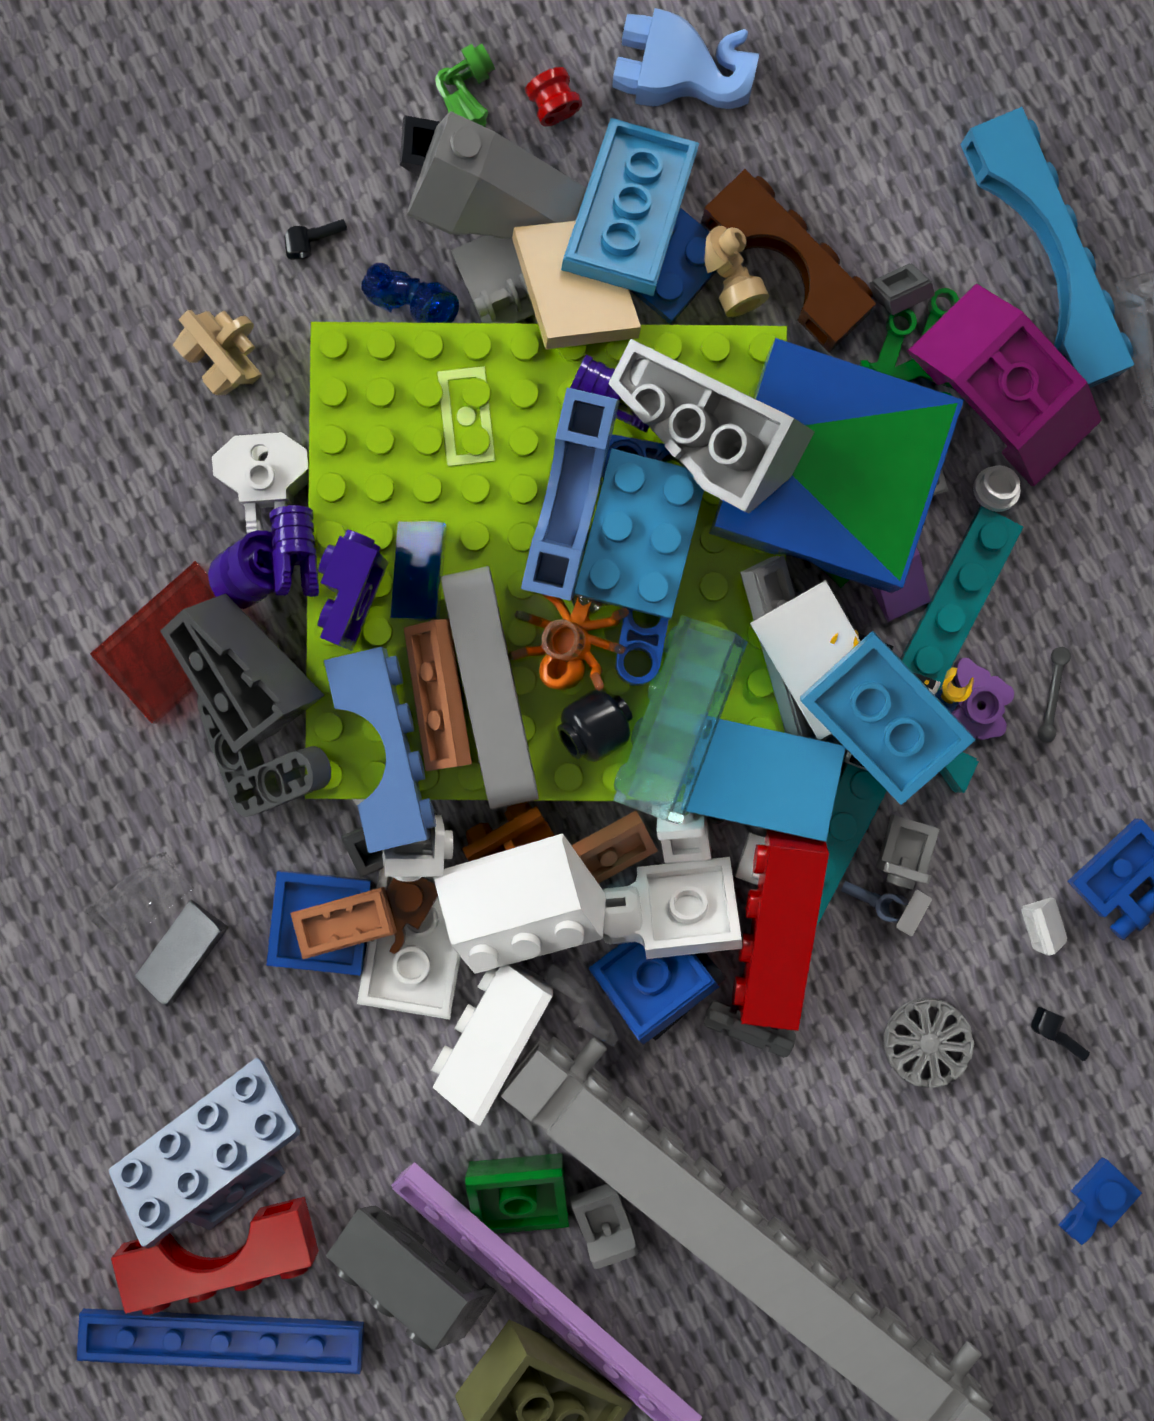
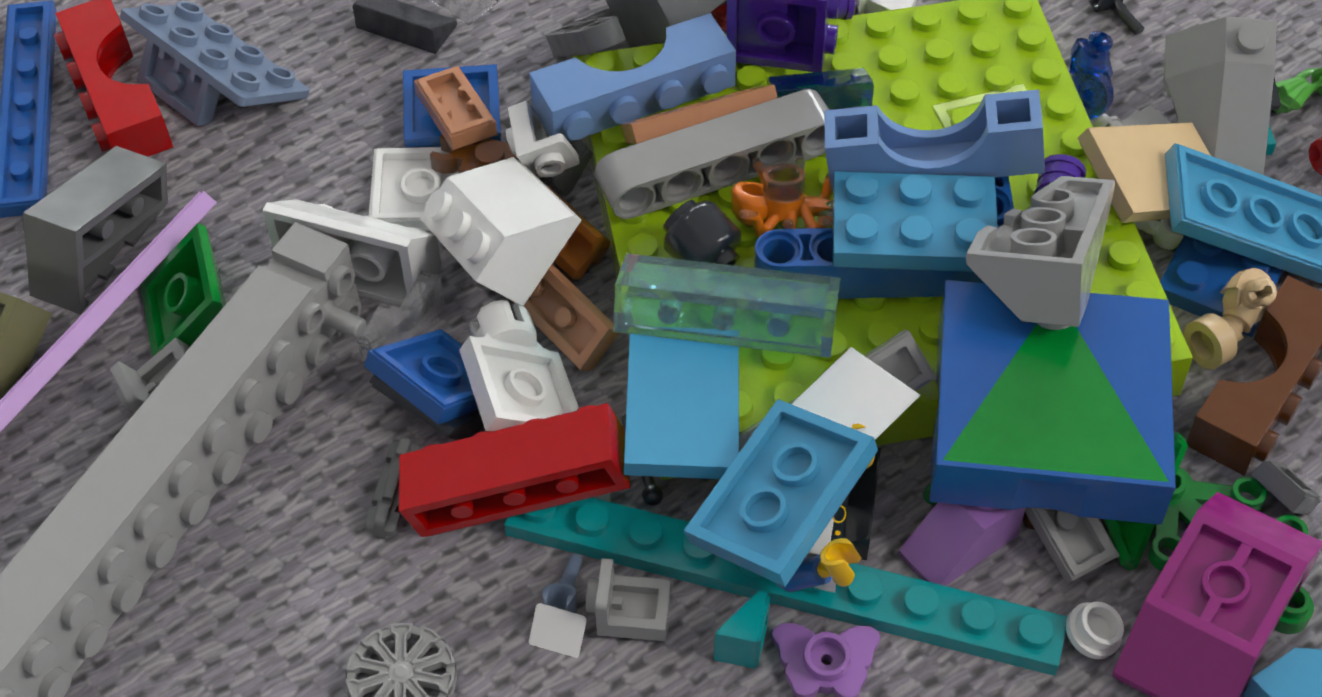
camera: 80 degrees right, 35 degrees down
(685, 841) = (605, 376): white bracket -> none

